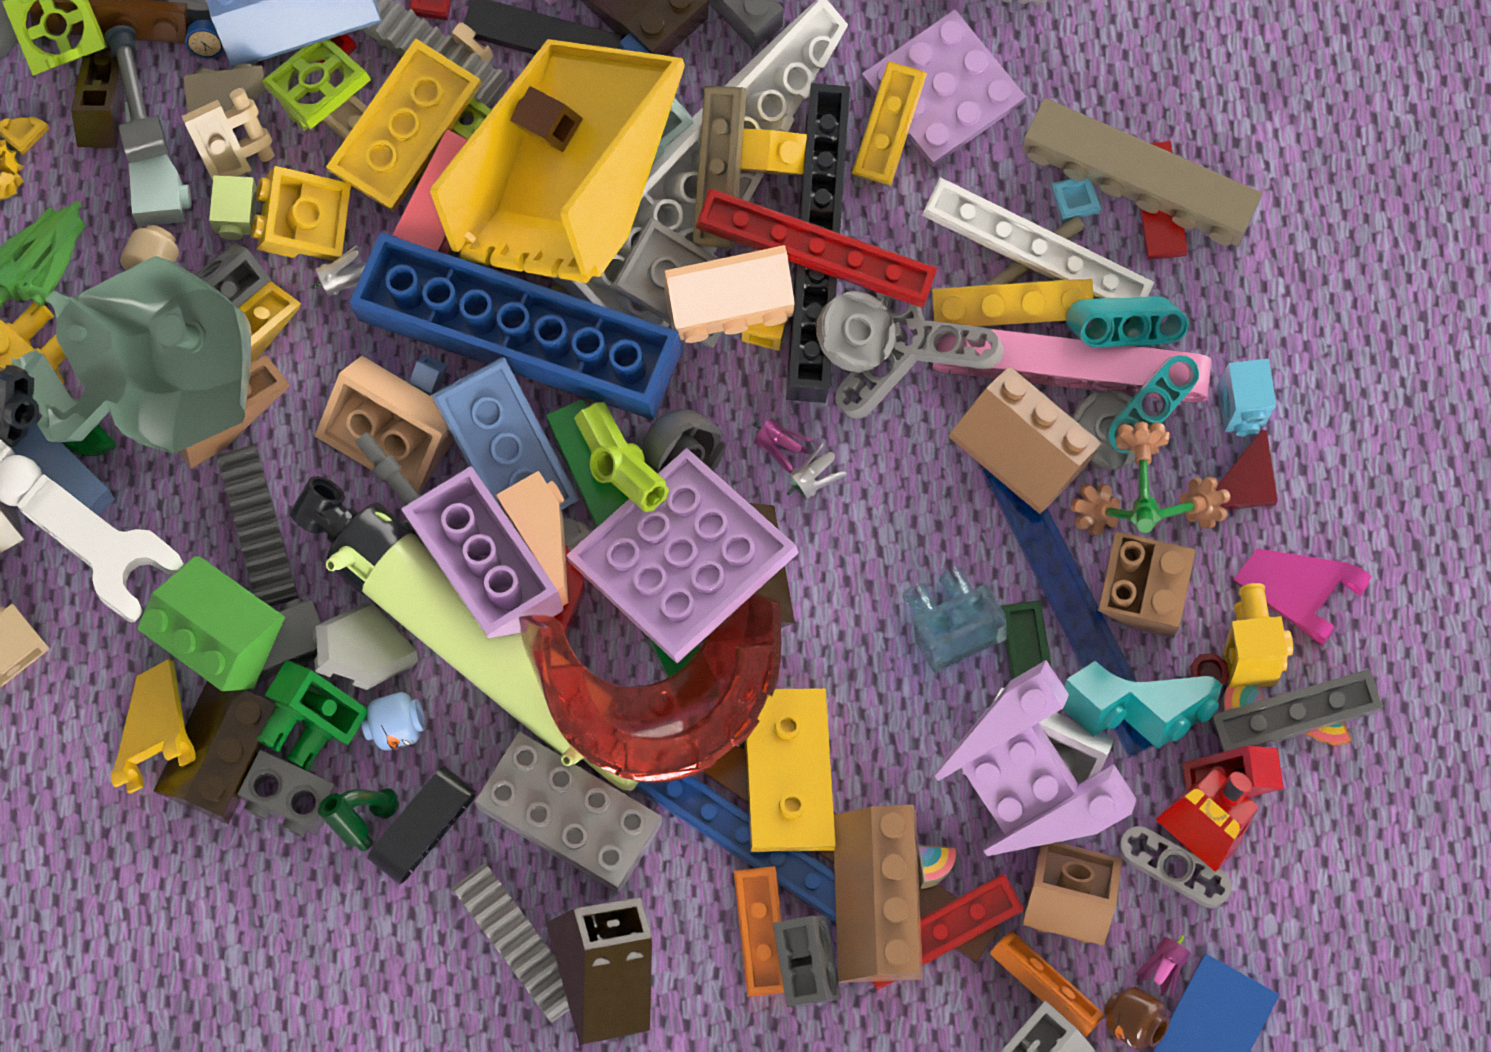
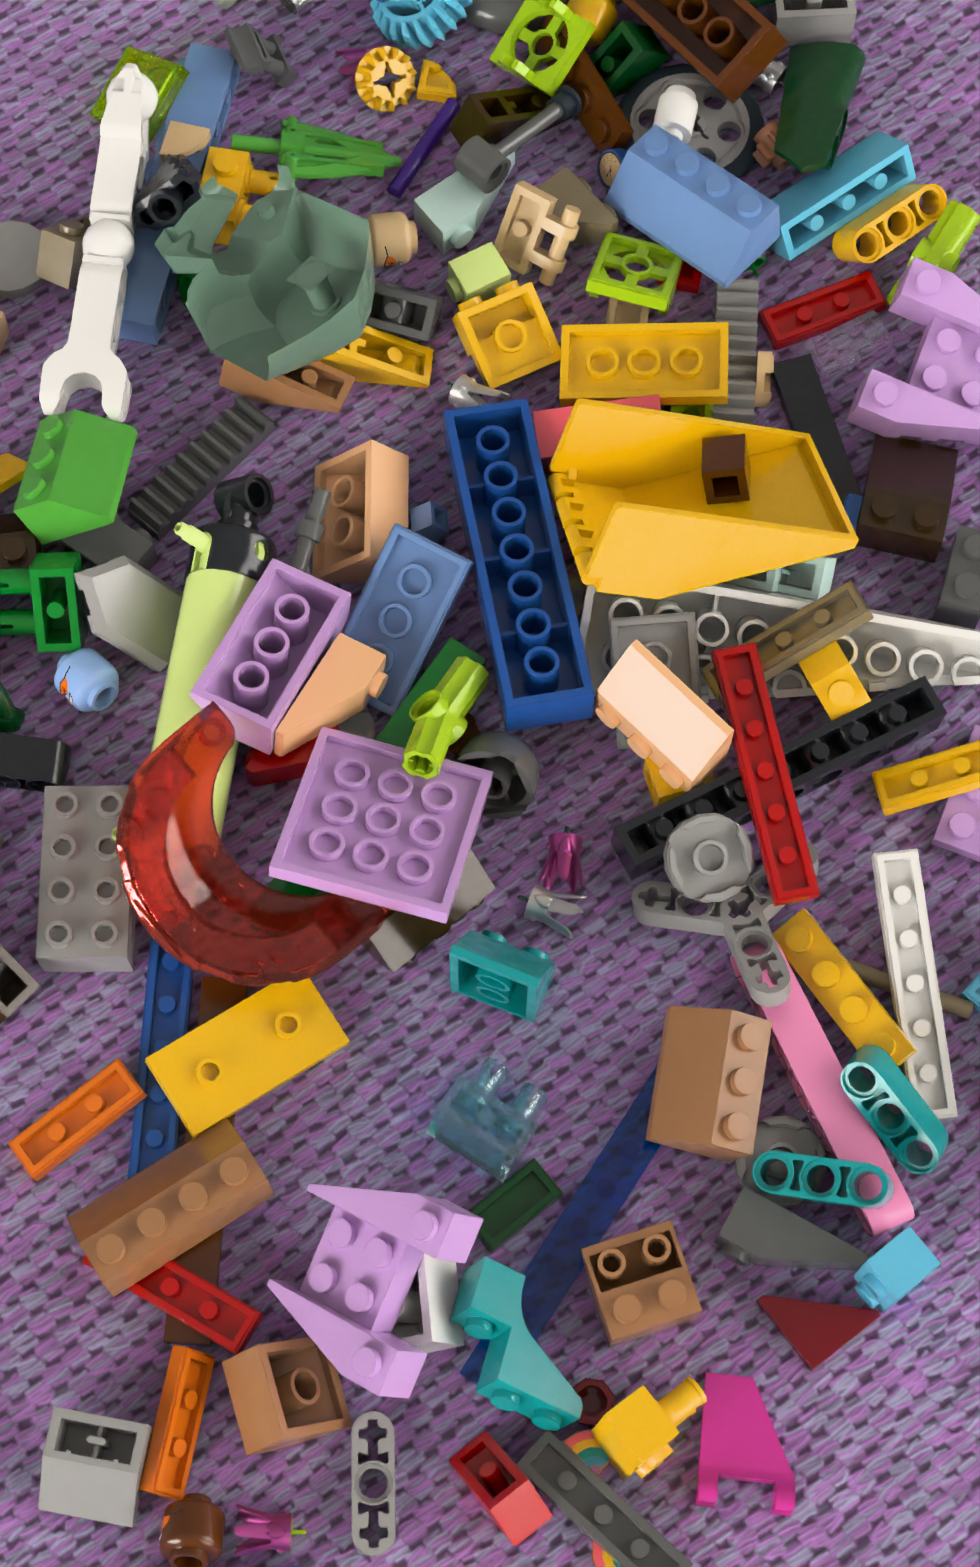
camera: 60 degrees right, 5 degrees down
(76, 177) = (423, 148): none -> dark purple bar
(806, 961) = (66, 1175): dark grey brick -> none
(849, 539) = (500, 974): none -> teal slope
(935, 864) = (236, 1243): tile -> none
(1102, 509) = (691, 1195): nougat plant -> none
(1173, 462) = (774, 1236): none -> dark grey slope
(1211, 816) = (438, 1489): red torso -> none

